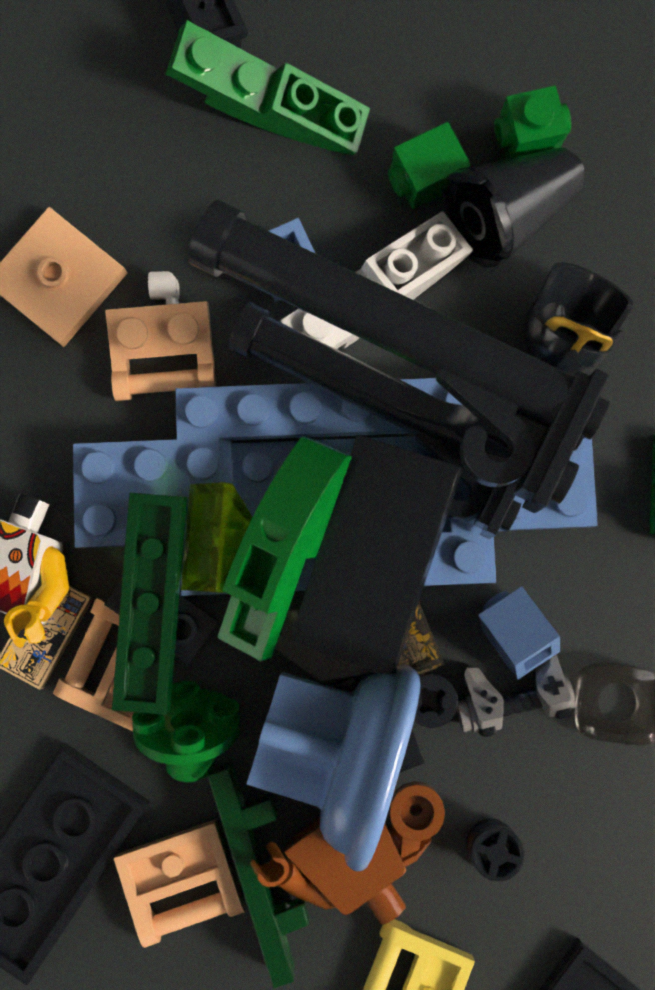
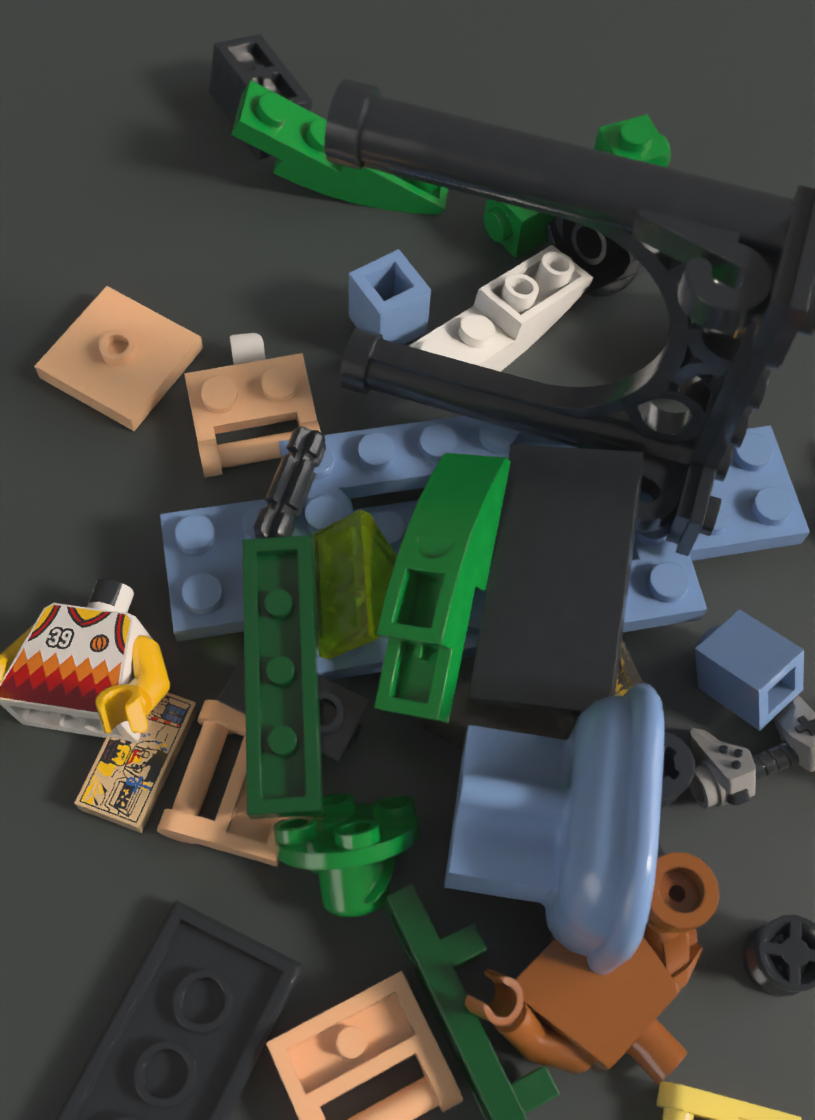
camera: 10 degrees left, 20 degrees down
(176, 441) = (291, 484): none -> black axle

